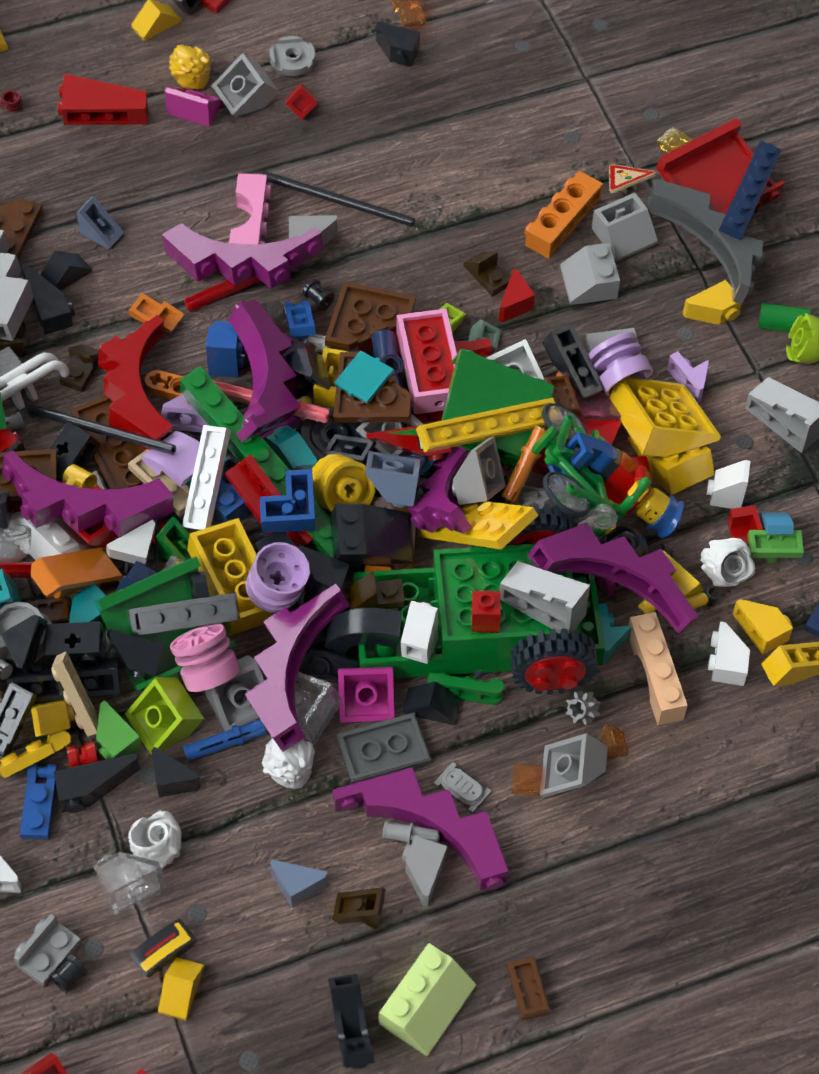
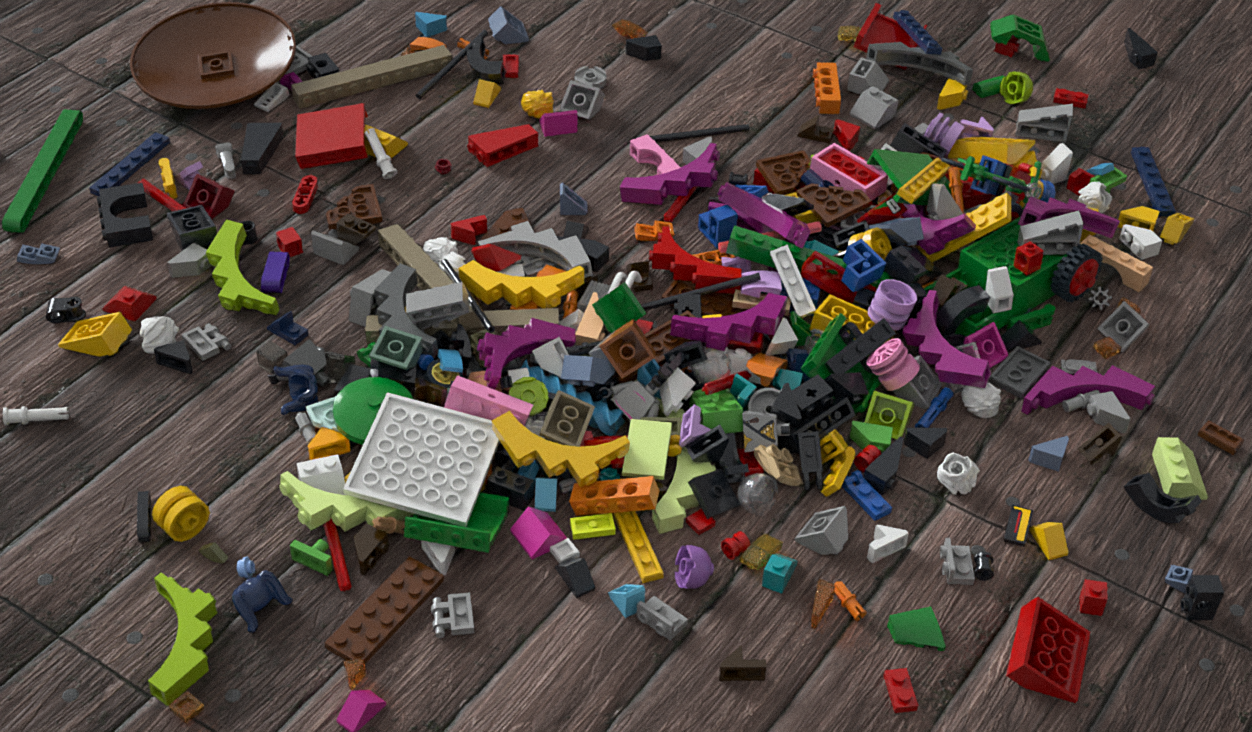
camera: 35 degrees left, 15 degrees down
(75, 694) = (837, 421): tan plate -> none
(127, 879) = (966, 498): clear slope -> none
(301, 100) = (621, 94): red panel -> none
(364, 377) = (825, 194): teal piece -> none
(623, 177) = (841, 58): piece -> none

